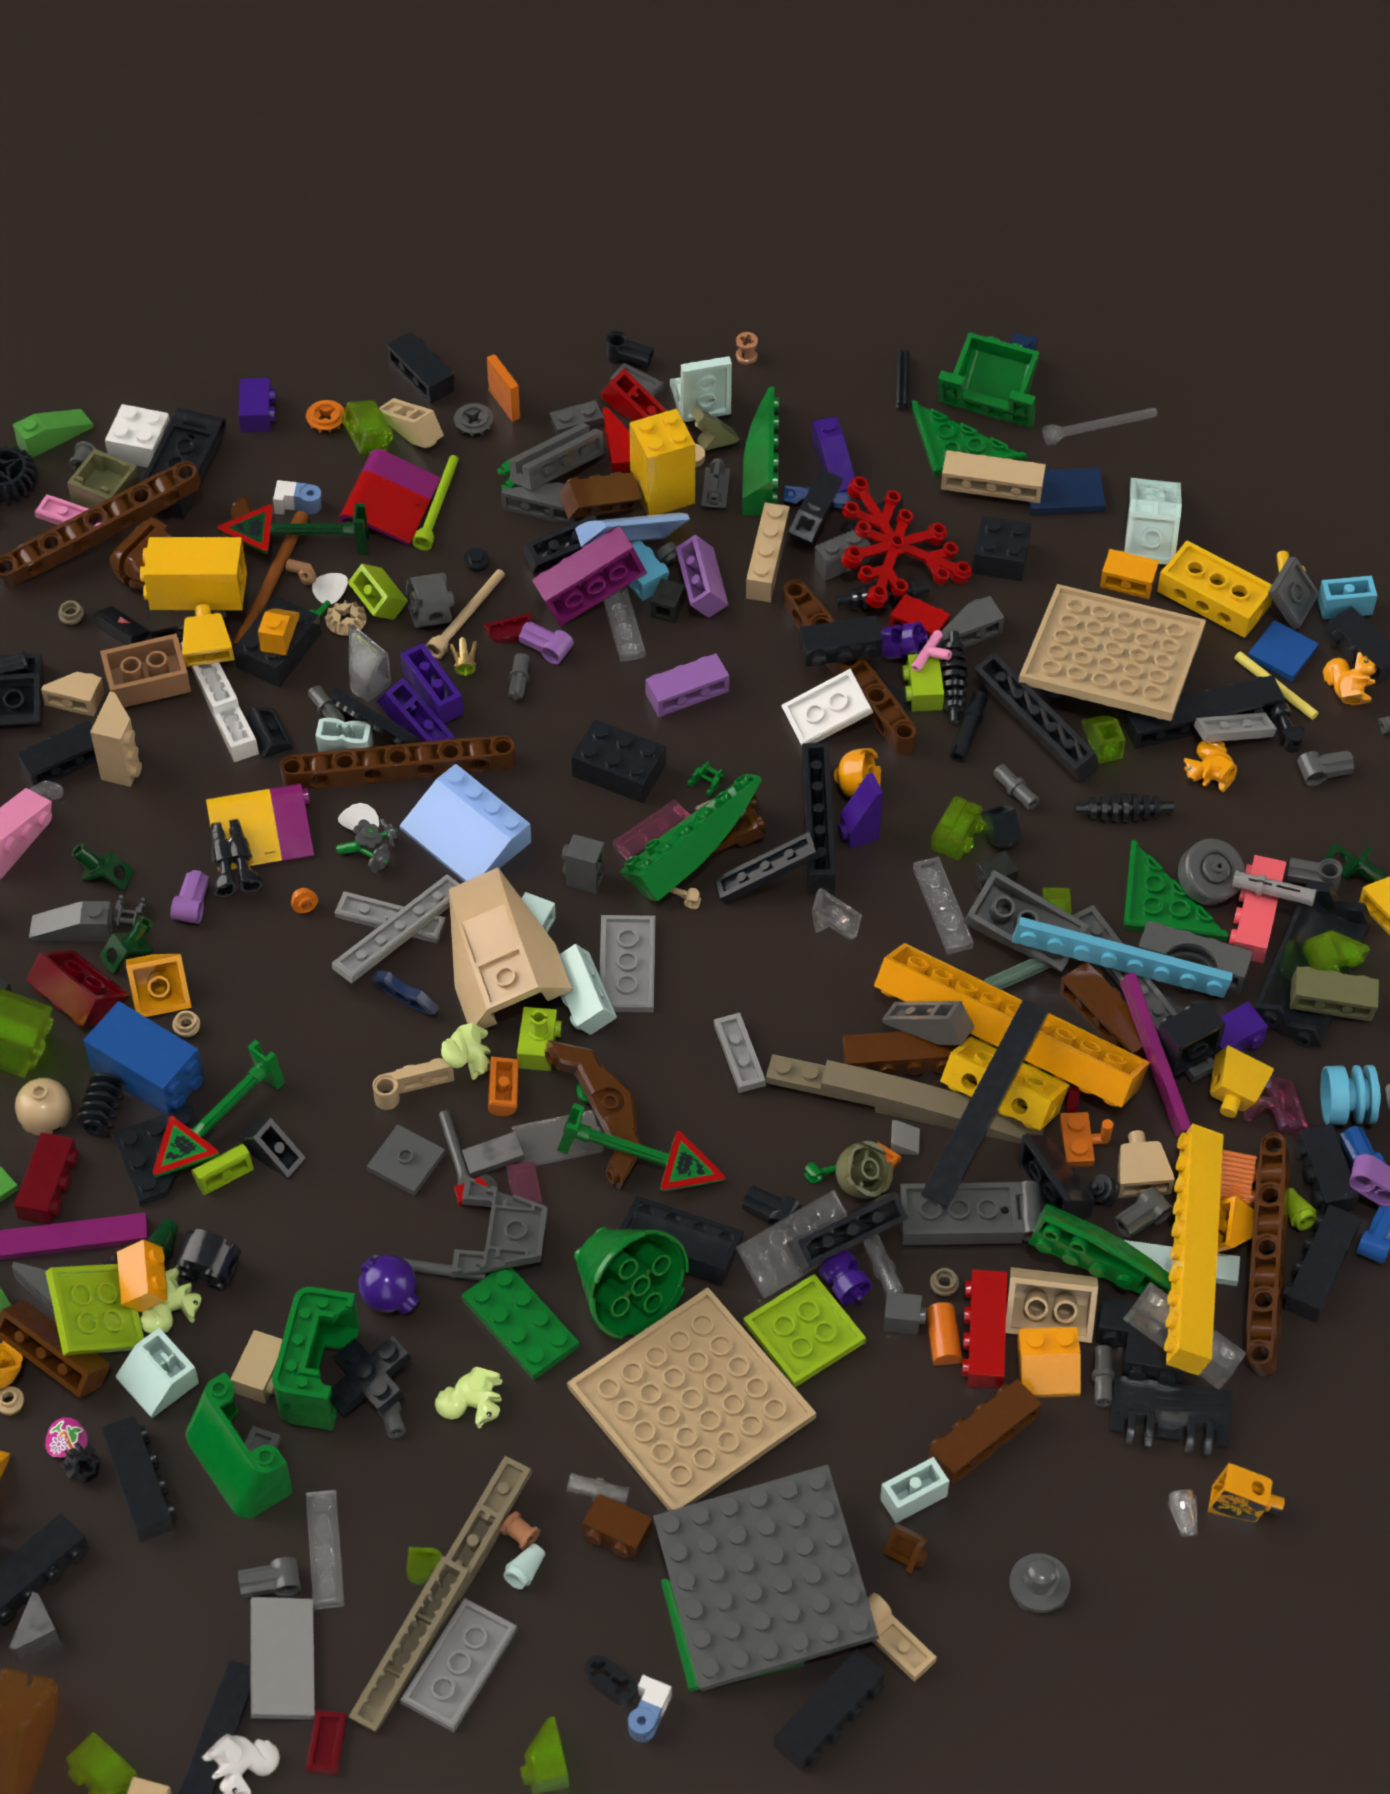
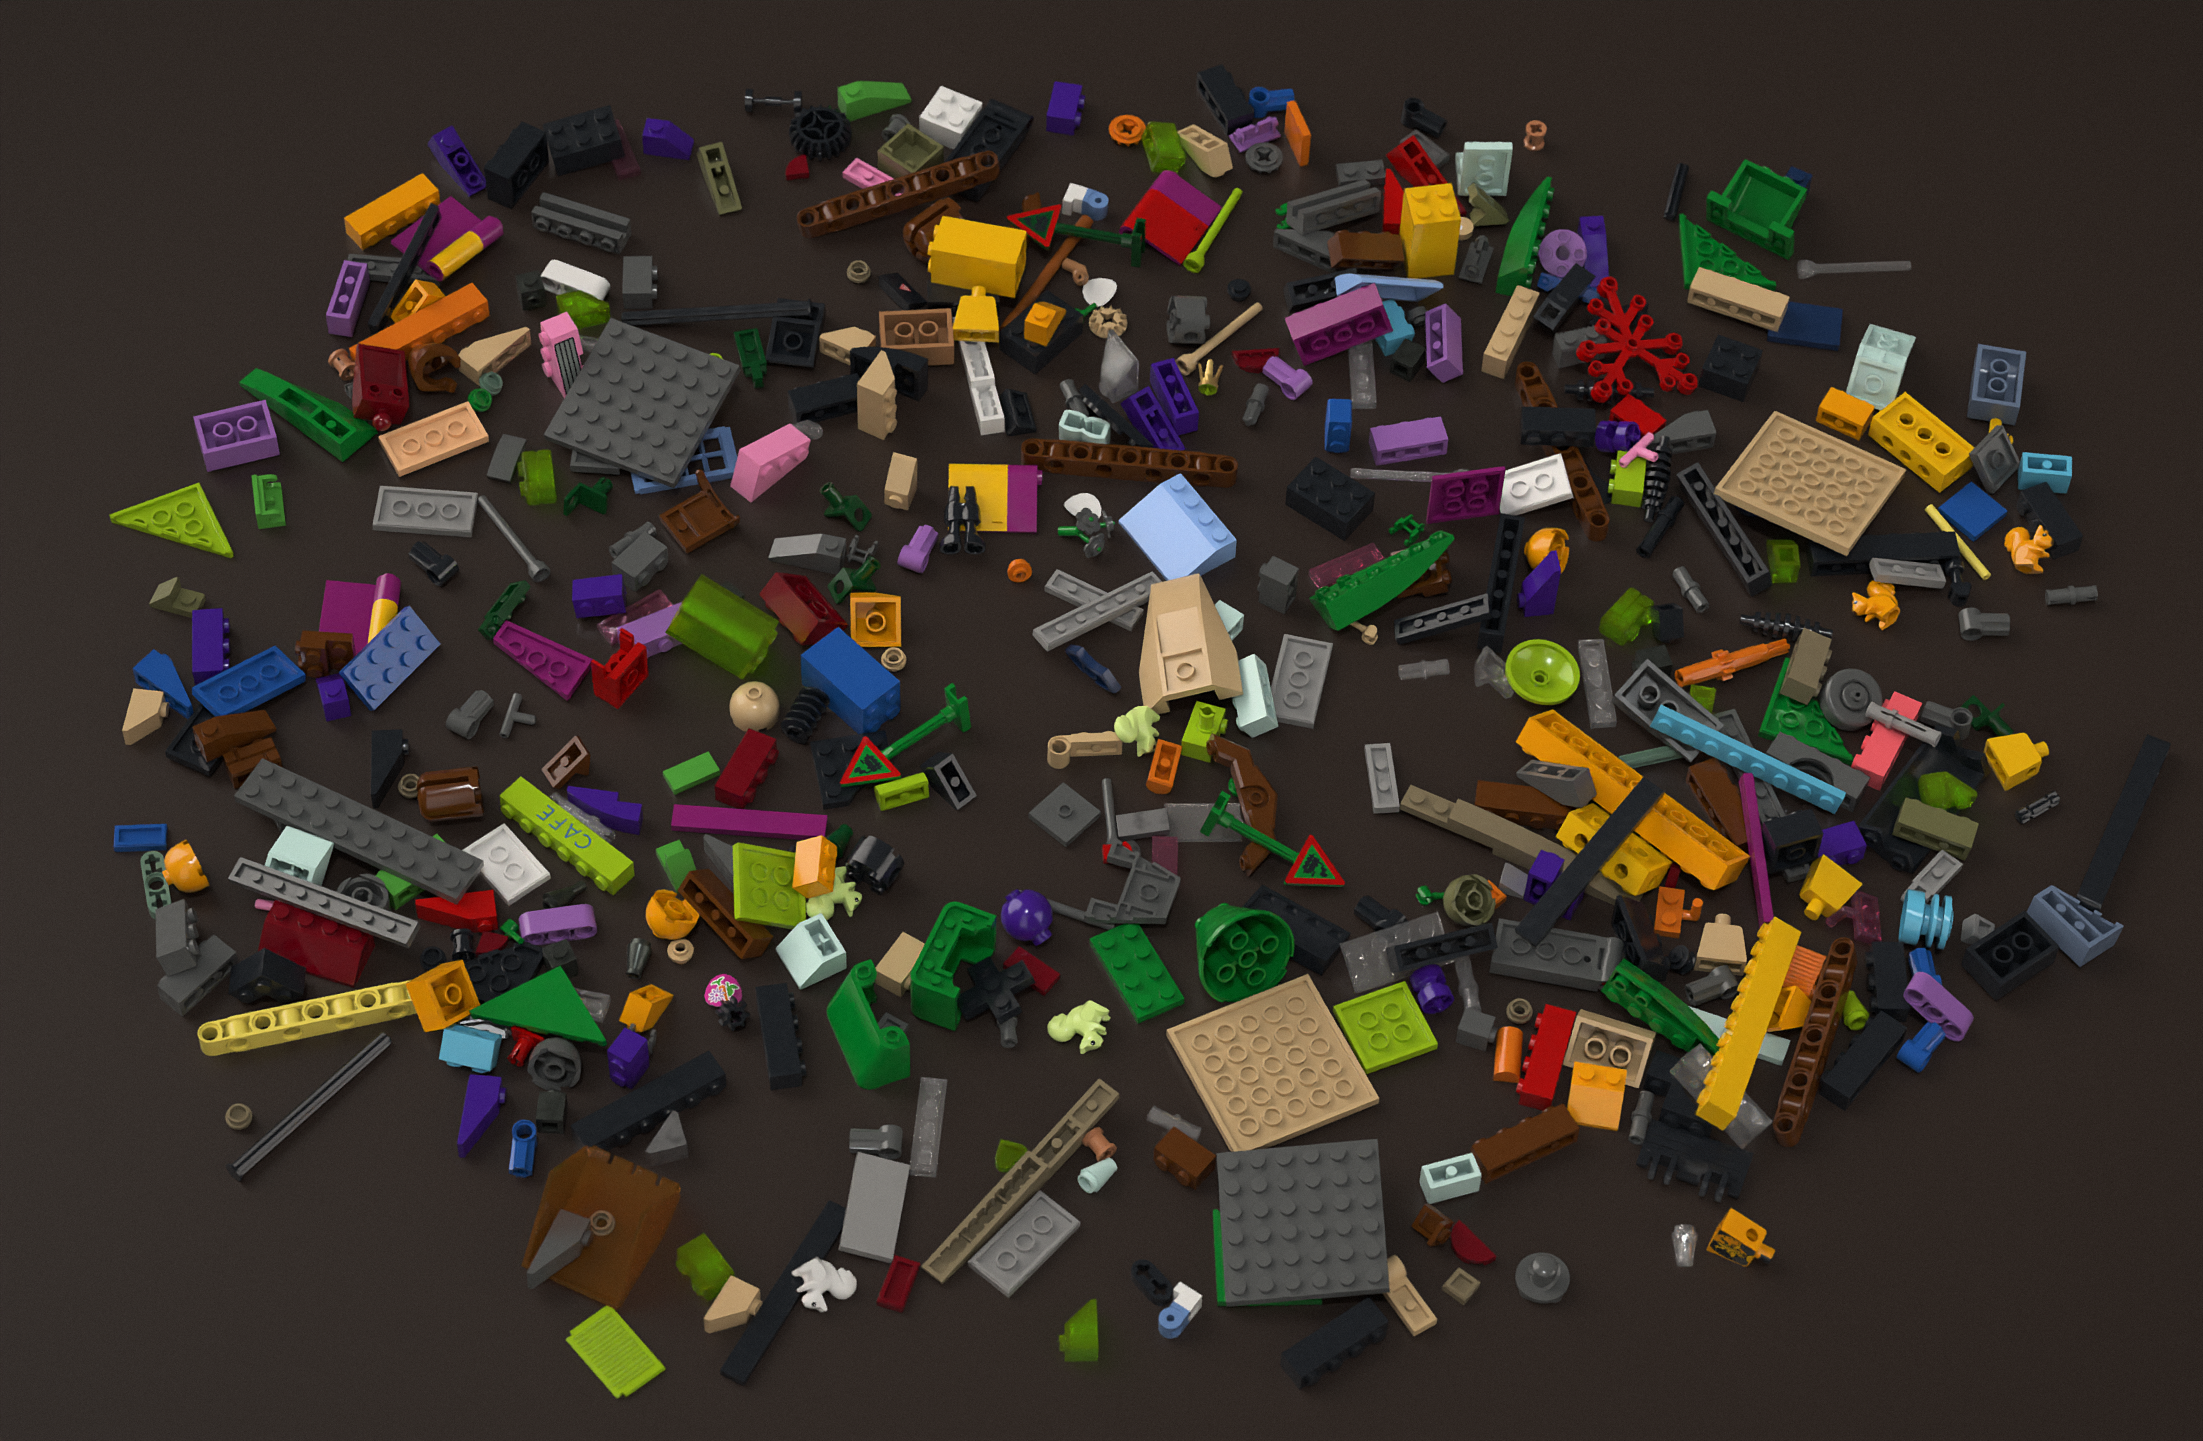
camera: 10 degrees right, 0 degrees up
(142, 705) = (908, 369): none -> black slope
(158, 828) = (901, 481): none -> tan slope
(377, 591) = (1141, 303): lime brick -> none
(417, 1345) = (1043, 974): none -> dark red tile
(463, 361) = (1266, 101): none -> blue piece
(466, 393) = (1250, 135): none -> medium lavender hinge
(611, 682) = (1338, 425): none -> blue brick
(747, 714) = (1396, 475): none -> clear piece
(757, 925) = (1423, 669): none -> clear axle
(761, 730) = (1465, 495): none -> magenta slope
(802, 460) = (1561, 251): none -> medium lavender plate
(888, 895) = (1546, 663): none -> lime dish
(937, 1130) = (1541, 877): none -> dark purple brick
(951, 1563) = (1469, 1247): none -> dark red tile
(953, 1611) = (1461, 1286): none -> dark tan tile
(1072, 858) = (1725, 663): none -> orange piece
(1157, 846) = (1806, 666): none -> dark tan brick
(1275, 516) = (1996, 384): none -> sand blue brick
(1345, 1044) = (1935, 875): none -> light grey hinge

